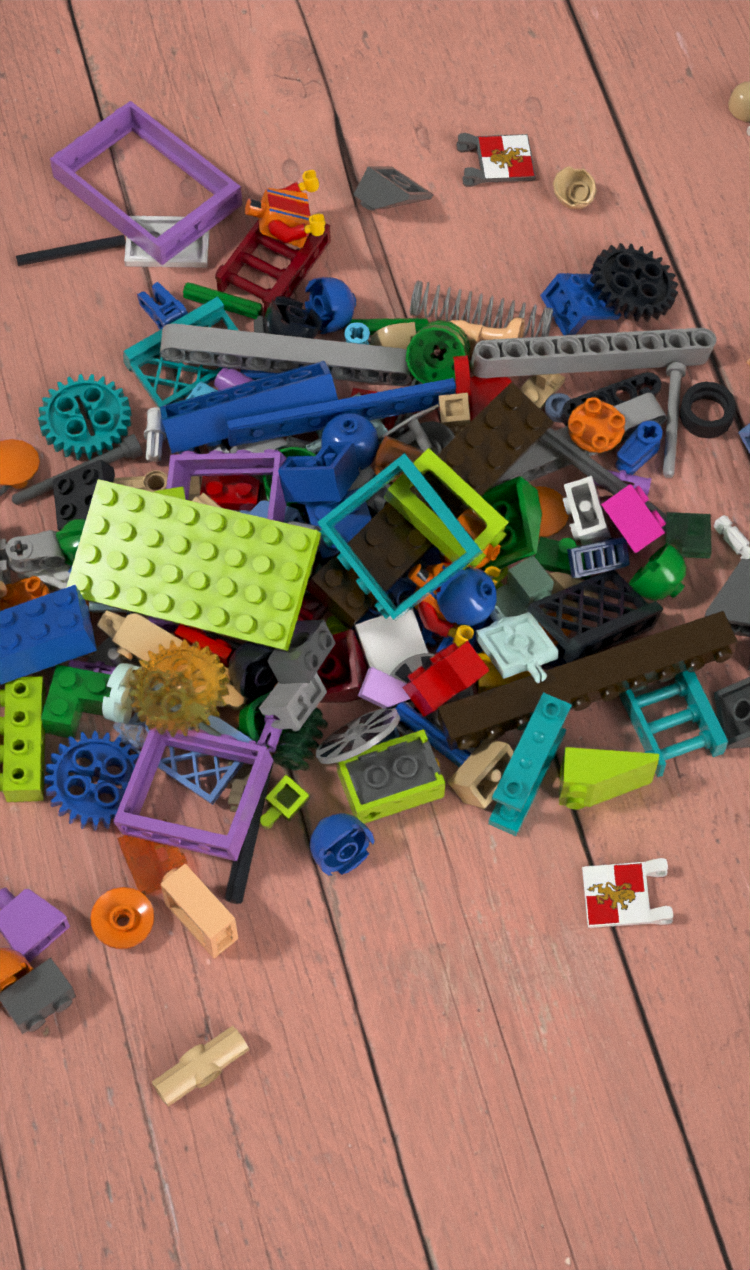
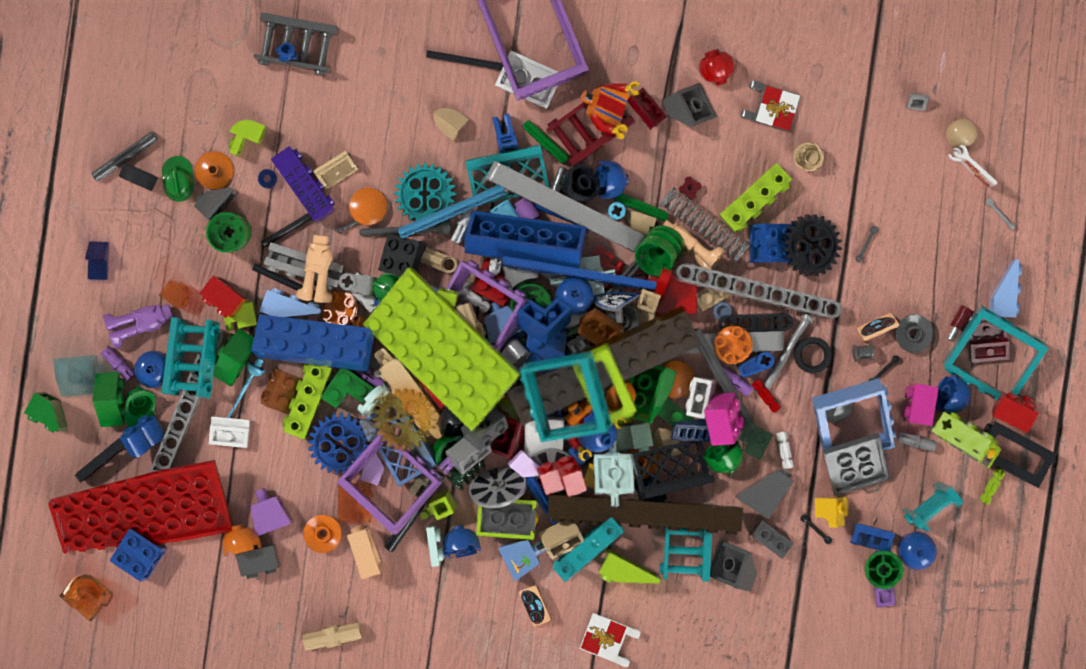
camera: 20 degrees right, 25 degrees up
(81, 324) = (449, 122): none -> tan brick
(129, 417) = (451, 211): none -> dark azure axle
(162, 800) = (373, 470): none -> lavender tile
(304, 862) = (436, 551): none -> light aqua plate
(338, 211) = (647, 108): none -> dark red bracket
(404, 137) = (716, 67): none -> red plant
(436, 275) = (695, 187): none -> dark red plate
(437, 827) = (521, 556): none -> medium blue torso
(492, 890) = (535, 605): none -> slope
(532, 258) = (755, 197): none -> lime brick
(674, 484) = (766, 396): none -> red axle
(676, 86) = (917, 101): none -> light grey slope
(703, 245) = (873, 230): none -> dark grey hinge

